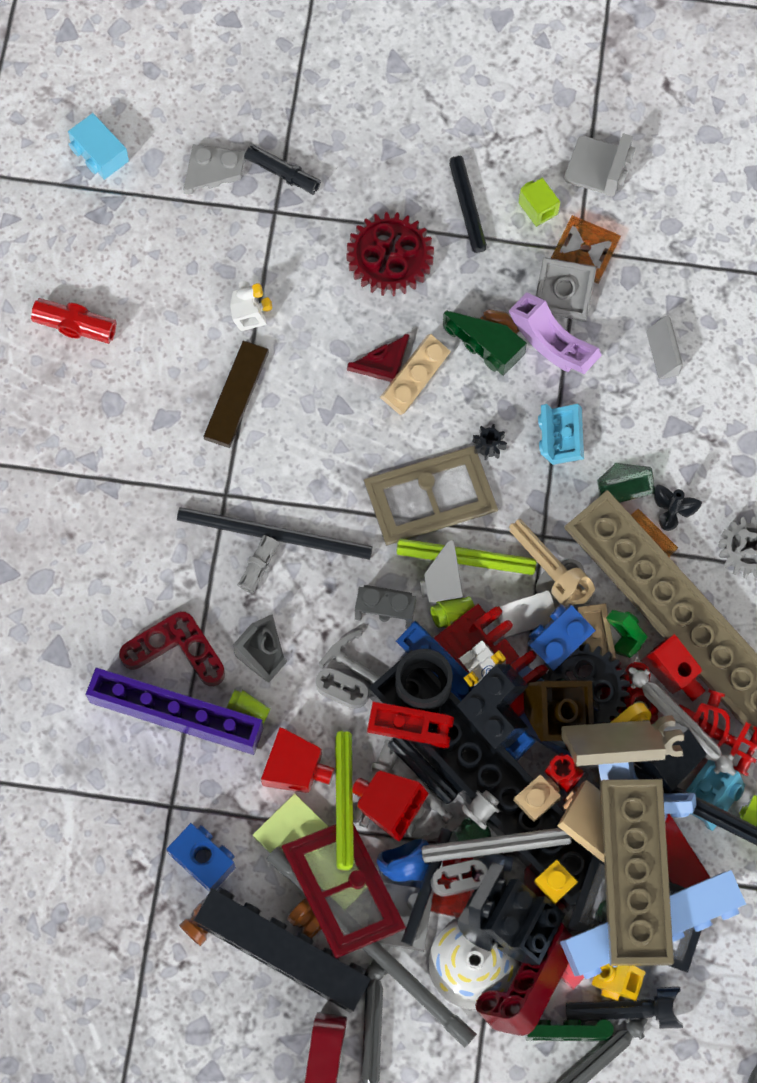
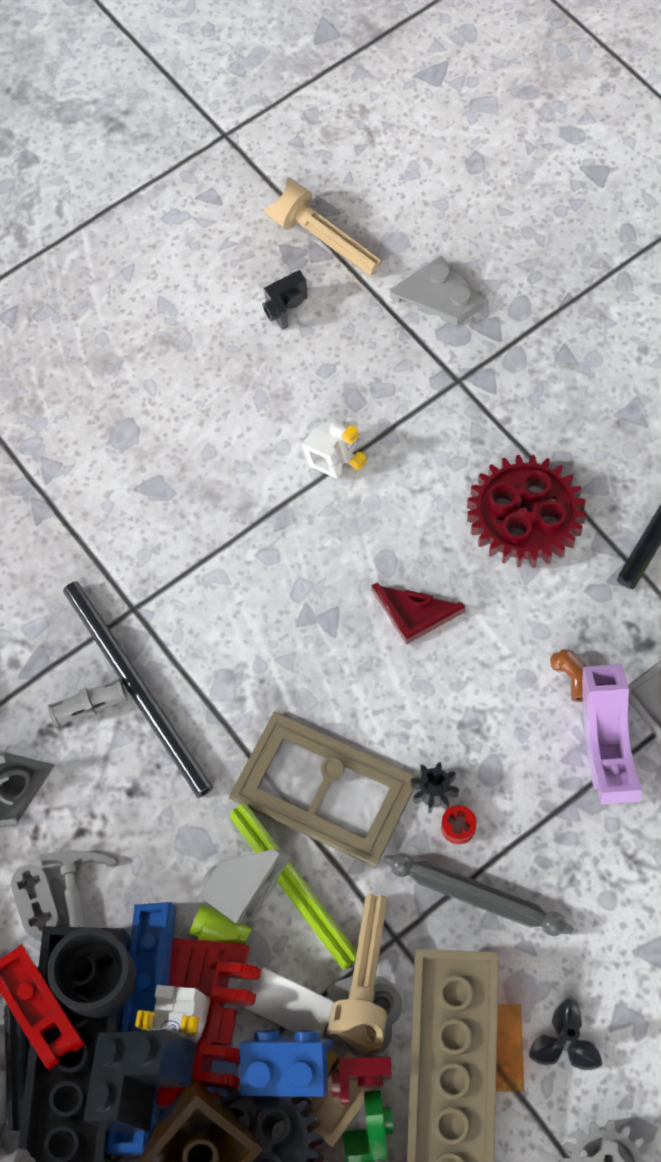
camera: 50 degrees right, 5 degrees down
(73, 320) = (166, 328): red piece -> none
(91, 184) = (294, 208): none -> tan piece
(97, 146) = (350, 190): medium azure brick -> none
(125, 245) = (284, 294): none -> black bracket
(236, 394) = (240, 521): dark brown tile -> none
(290, 173) = (507, 356): black pin -> none
(385, 603) = (159, 858): dark grey window -> none
(415, 374) = (430, 651): tan plate -> none
(491, 341) = (543, 687): dark green slope -> none
(515, 458) = (470, 821): none -> red bush
(561, 433) = (518, 846): medium azure bracket -> none
(563, 476) = (478, 894): none -> dark grey wheel
(599, 605) = (367, 1071): none -> dark red bracket
(627, 482) = (537, 963): clear green slope -> none

